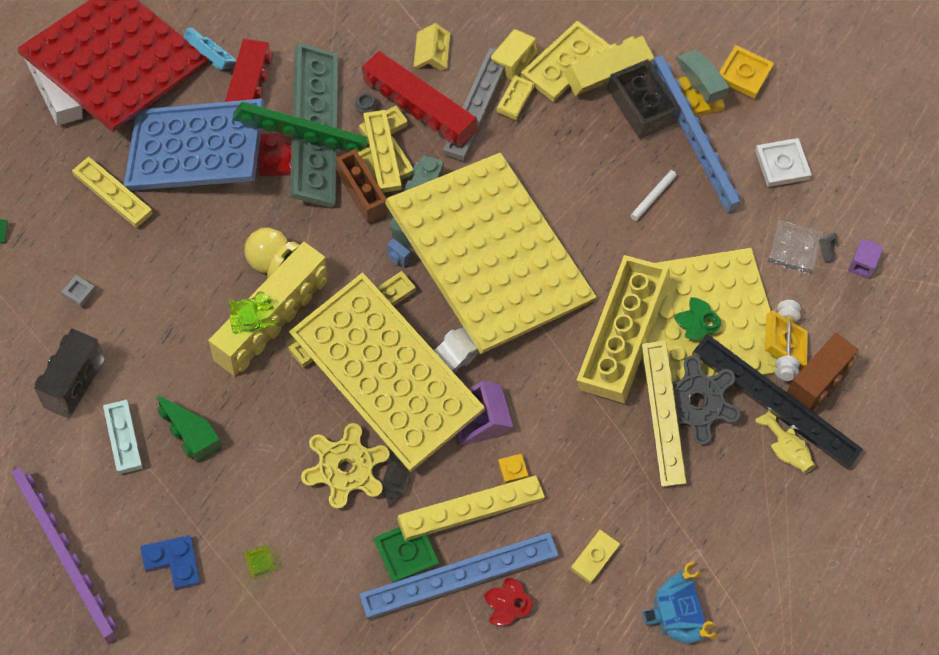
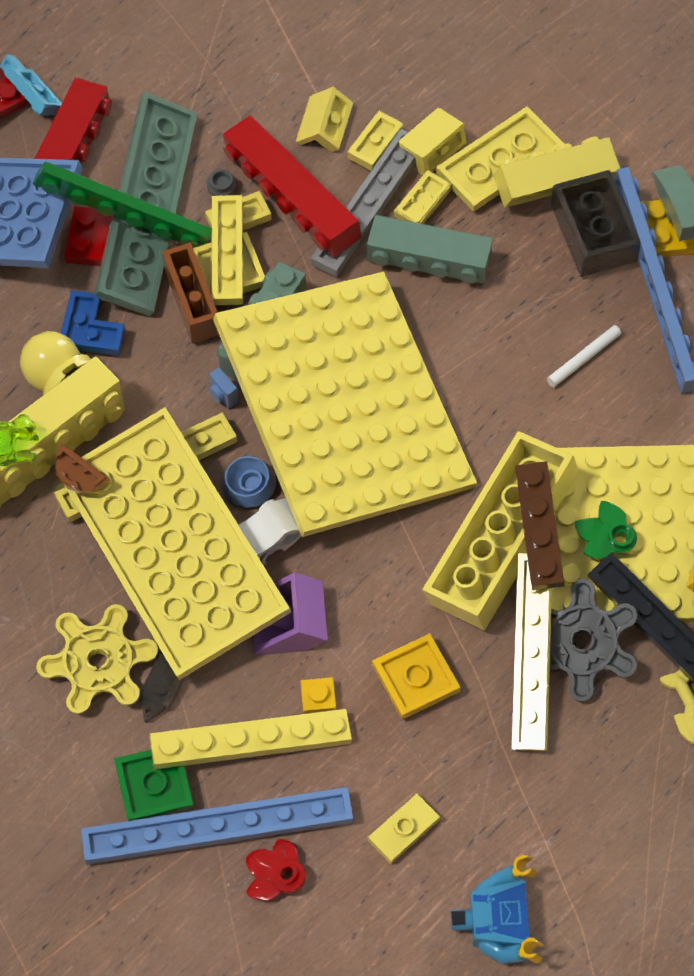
camera: 15 degrees right, 0 degrees up
(290, 225) = (86, 331): none -> blue plate
(307, 330) = (77, 473): none -> dark orange plate
(430, 319) = (248, 482): none -> medium blue hat
(472, 59) = (374, 140): none -> light yellow plate
(528, 132) = (429, 249): none -> sand green brick
(581, 444) = (416, 676): none -> yellow plate
(655, 321) = (539, 526): none -> reddish brown plate

